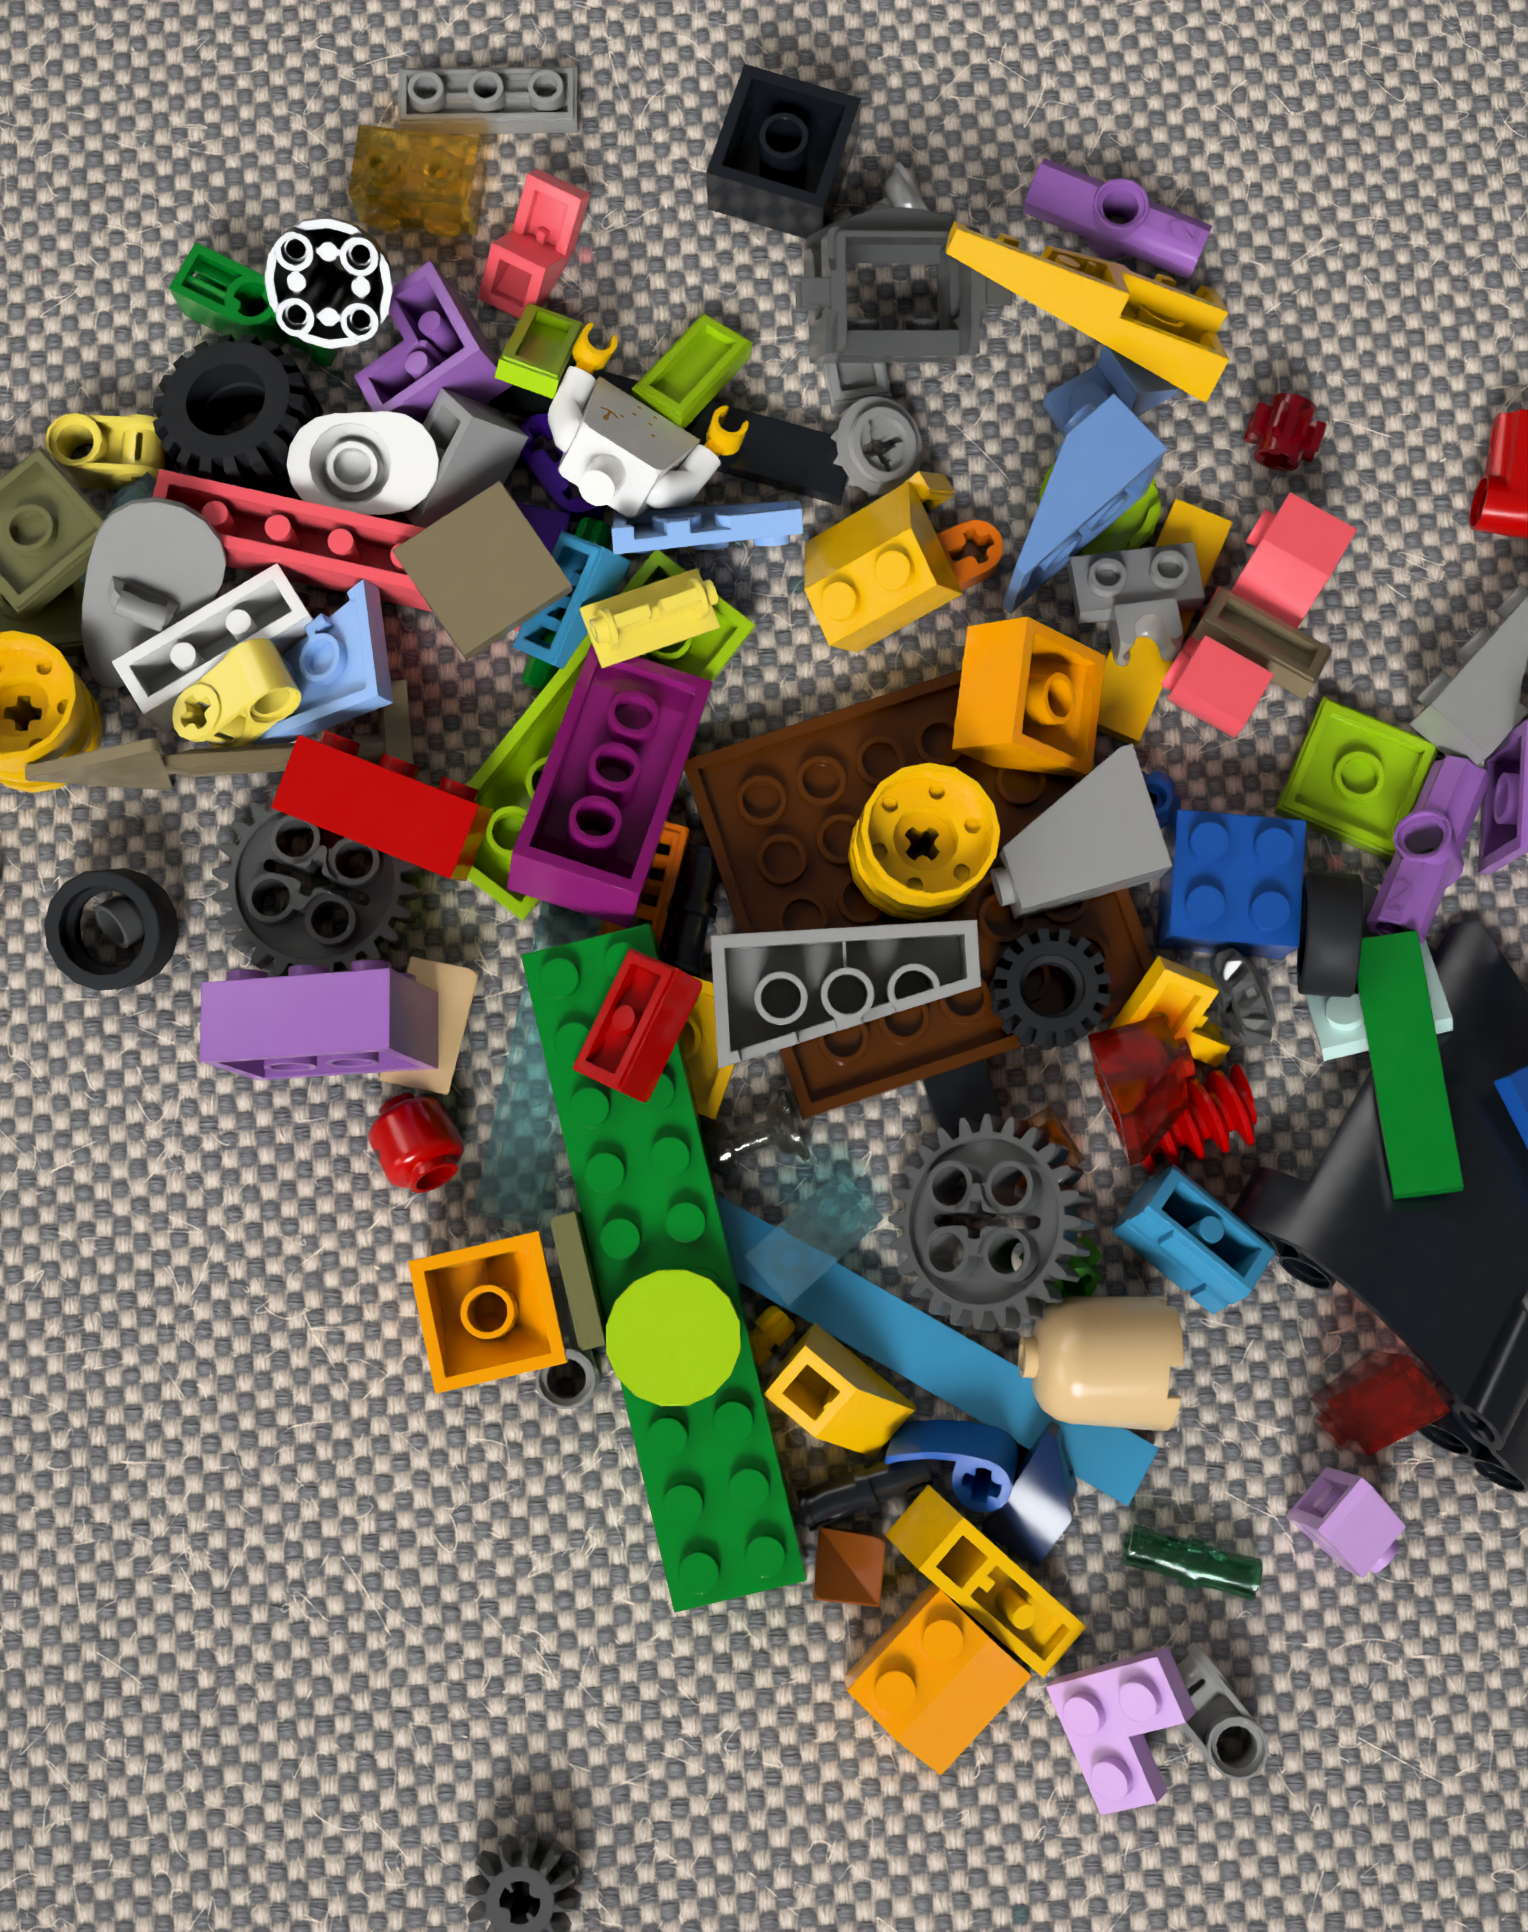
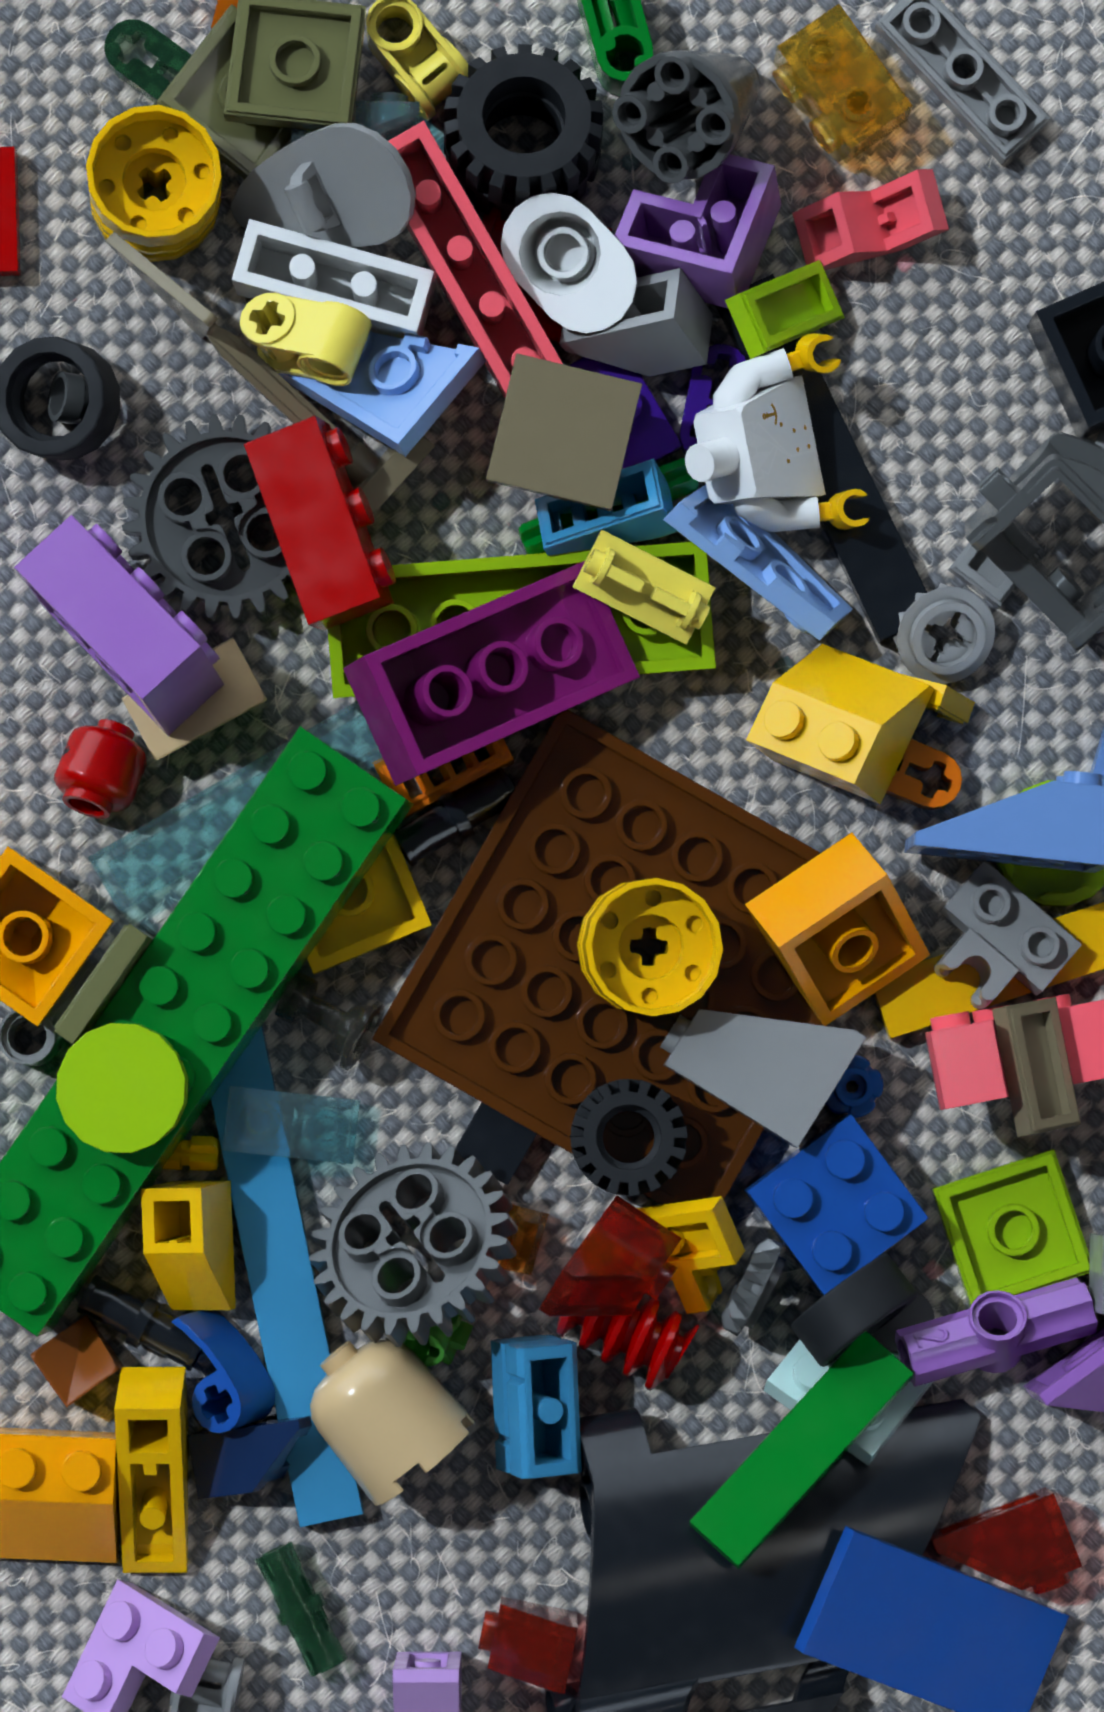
camera: 45 degrees right, 5 degrees up
(638, 1025) = (321, 860): red slope -> none
(693, 371) = (877, 436): lime tile -> none
(819, 981) = (482, 965): light grey wedge -> none

